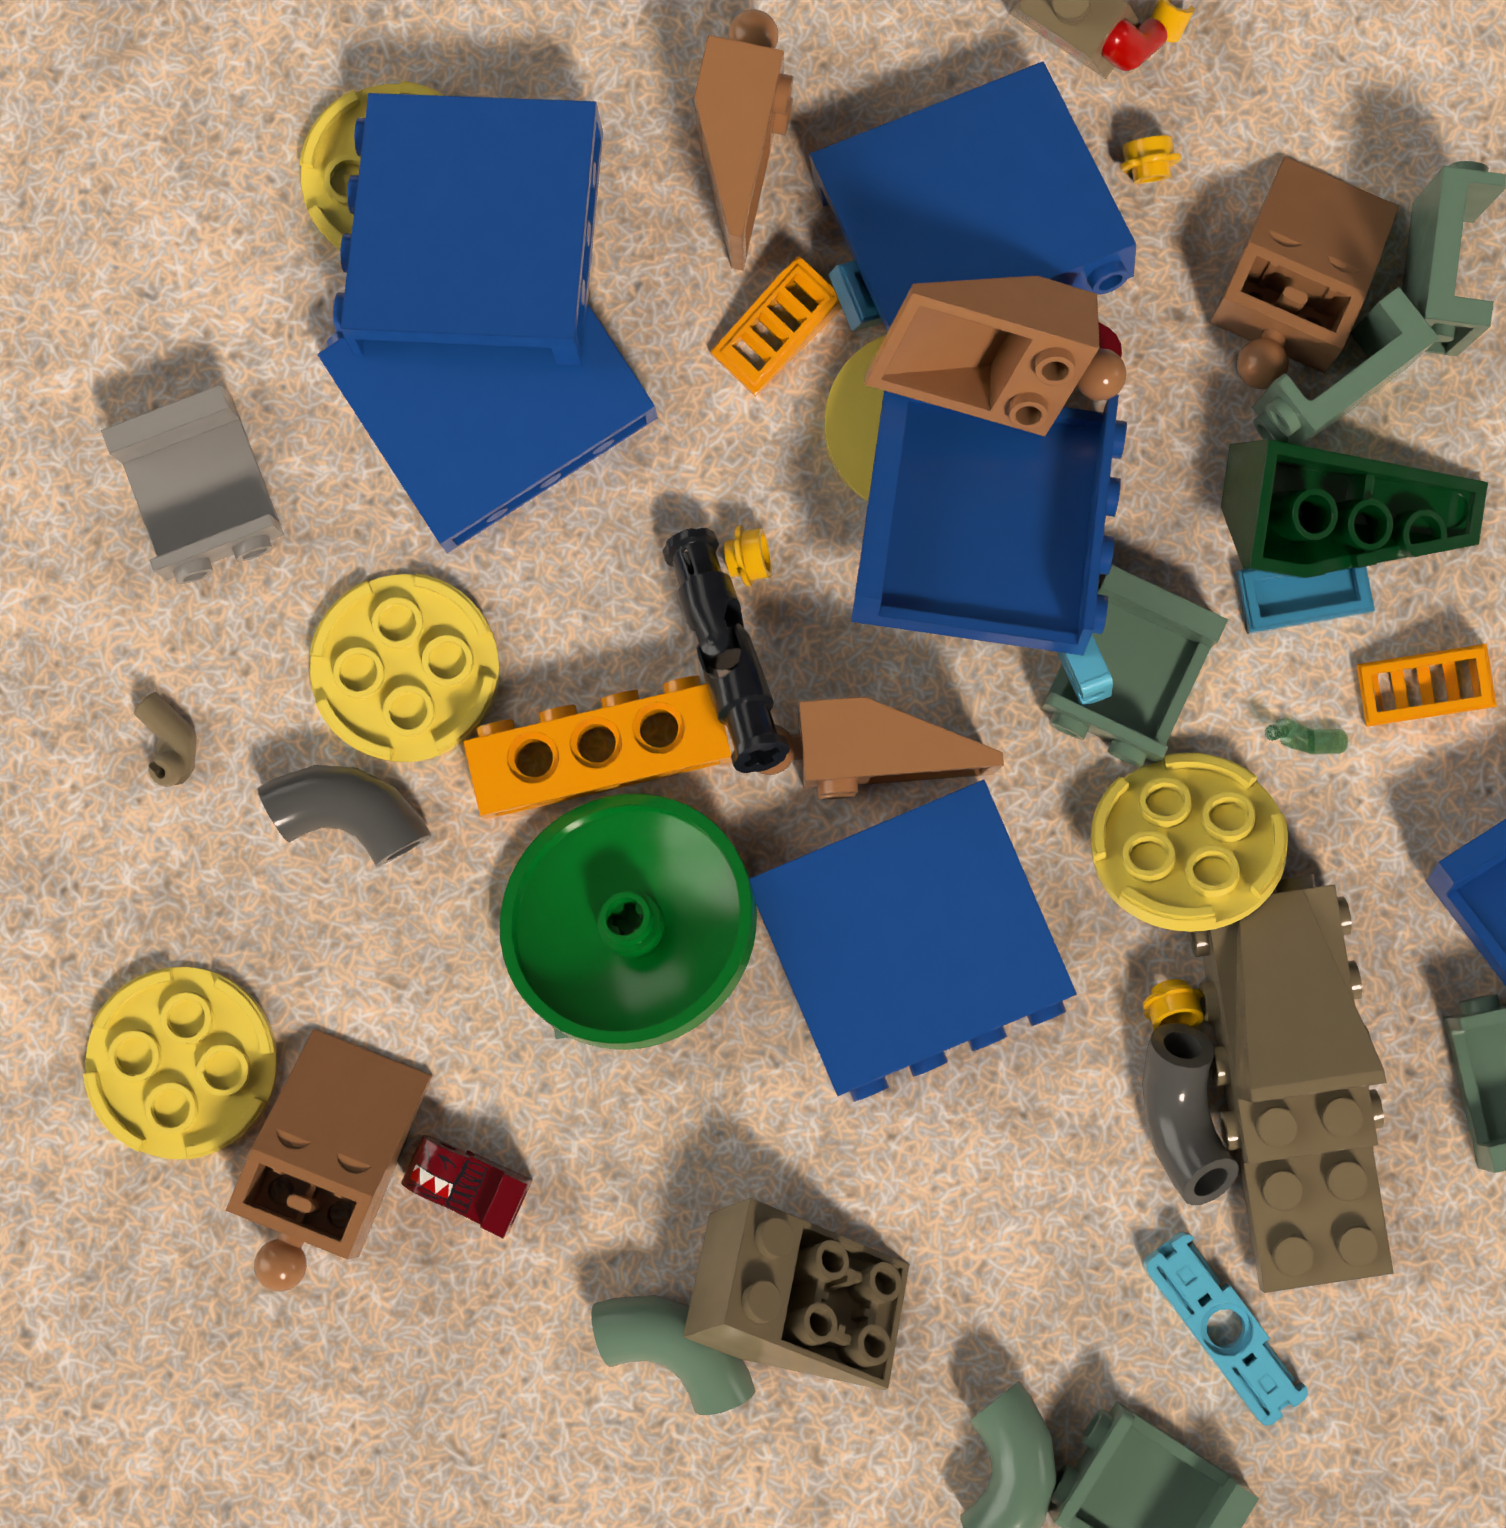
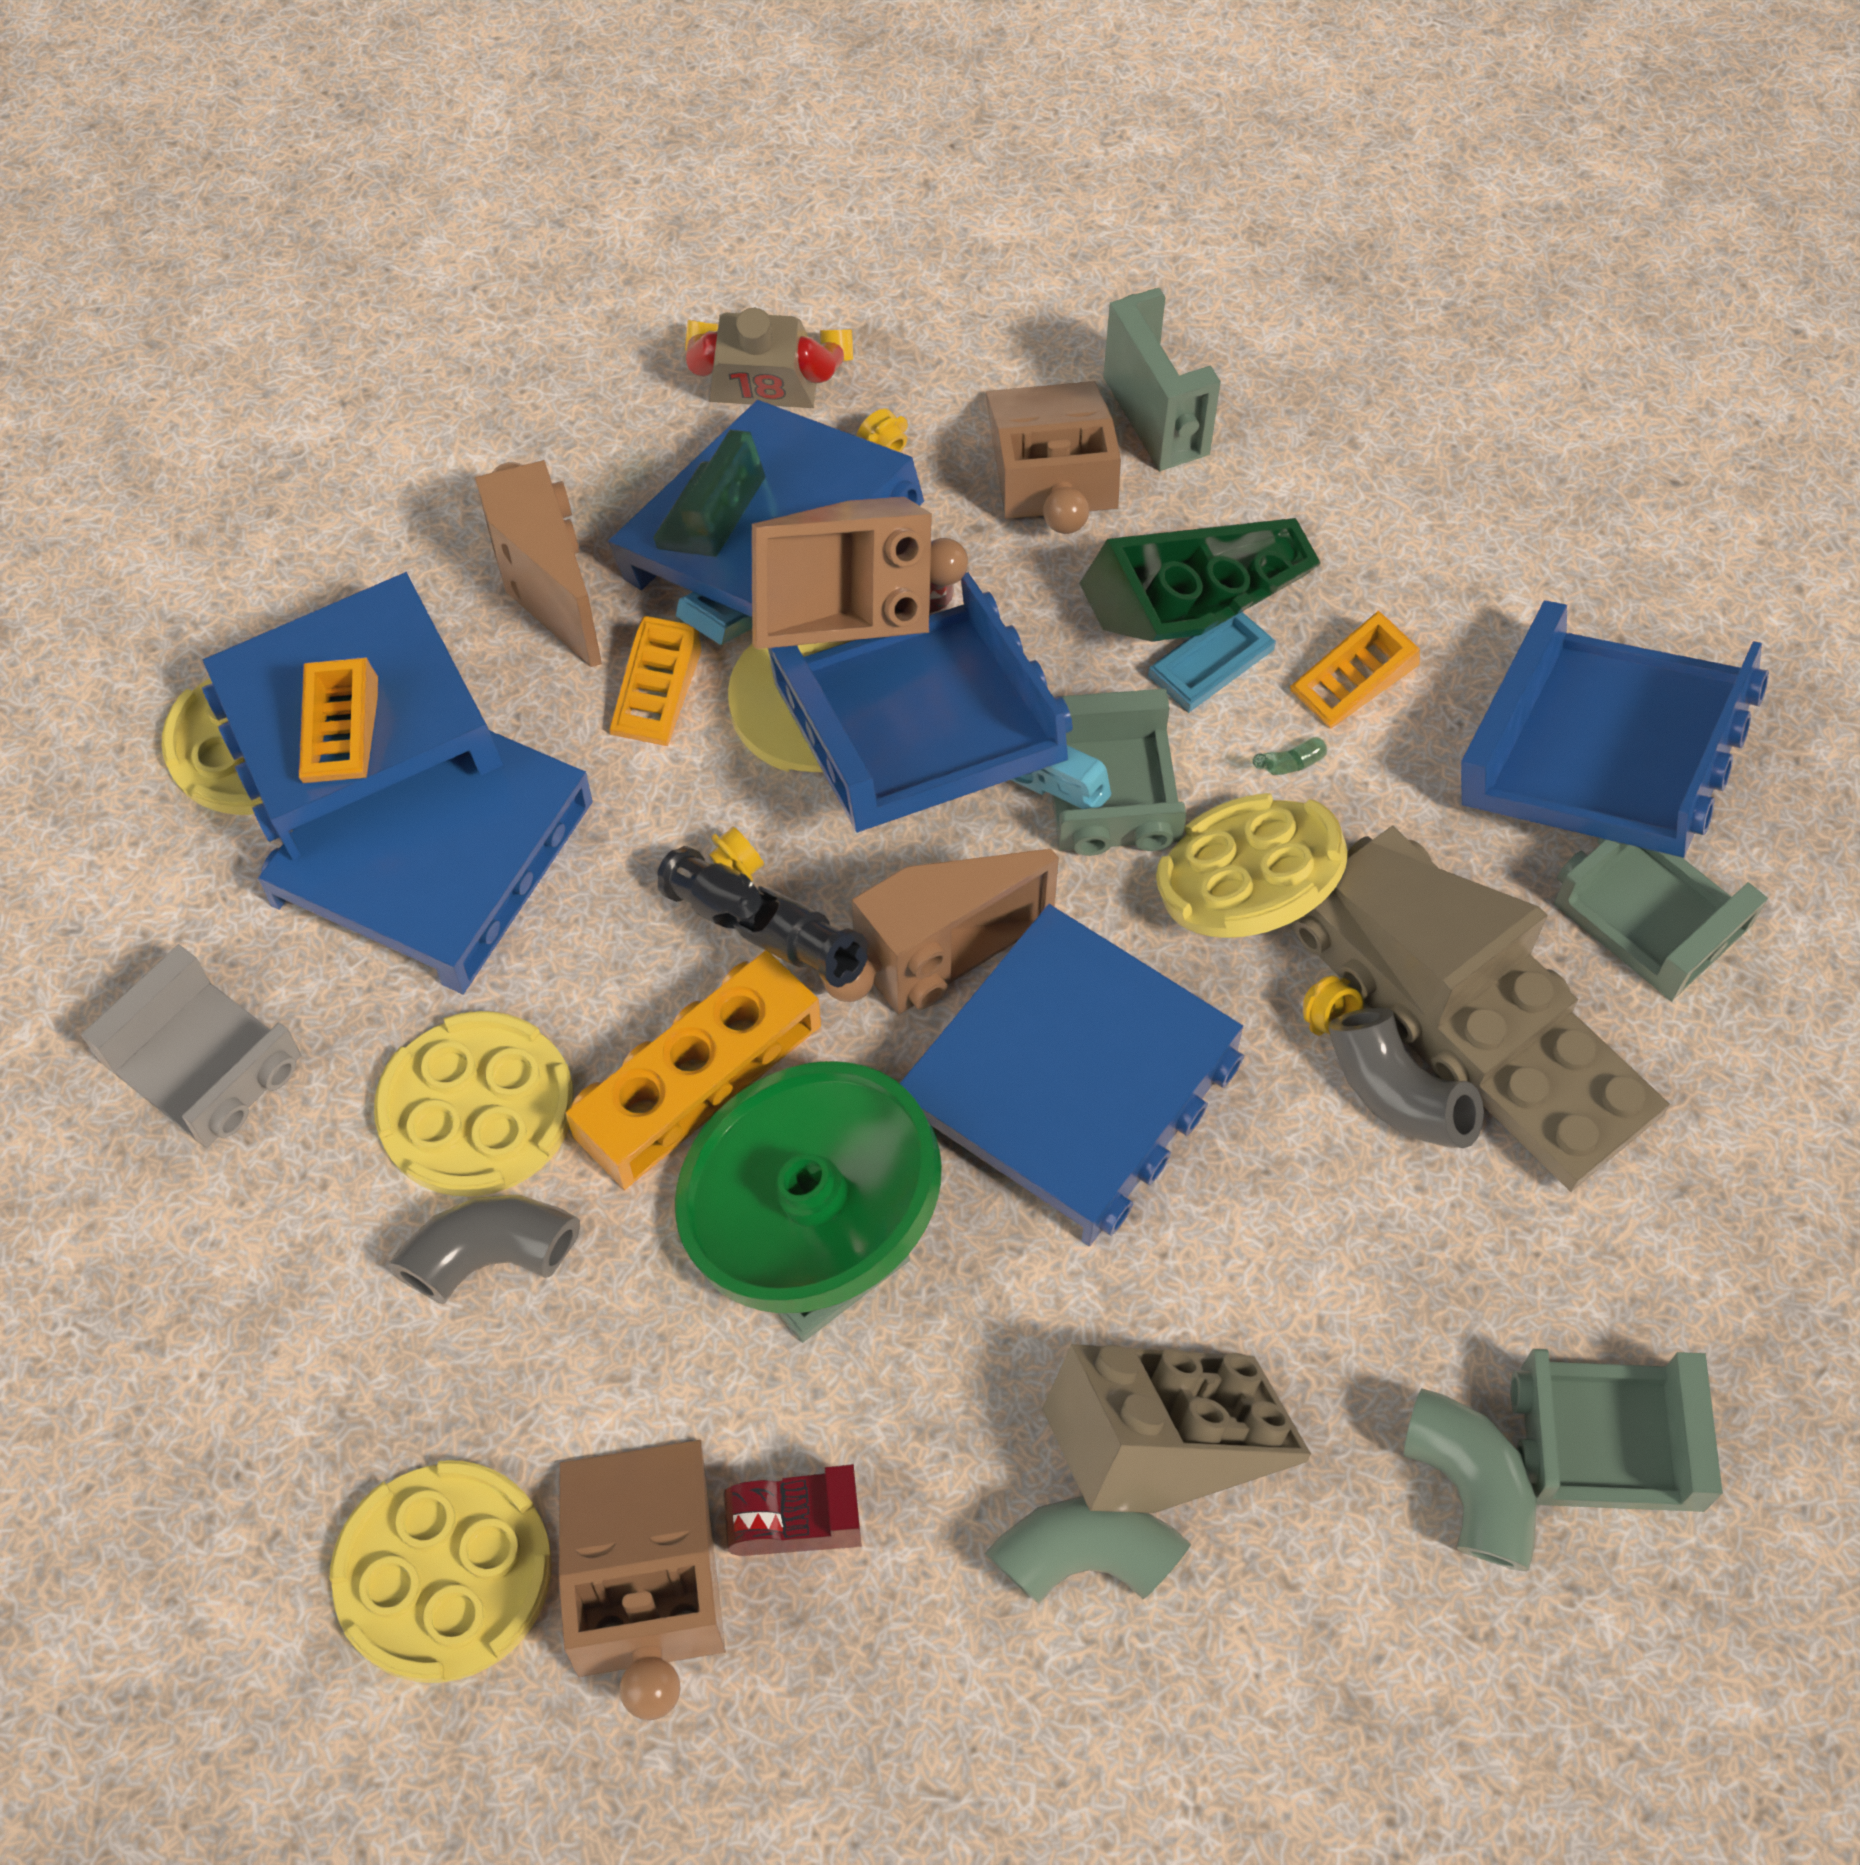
camera: 35 degrees left, 25 degrees down
(175, 741) = (284, 1276): dark tan arm -> none
(434, 229) = (329, 680): none -> light orange slope
(922, 177) = (713, 499): none -> clear green panel
(1249, 1361) = (1607, 1262): medium azure piece -> none
(1393, 340) = (1149, 466): sand green panel -> none

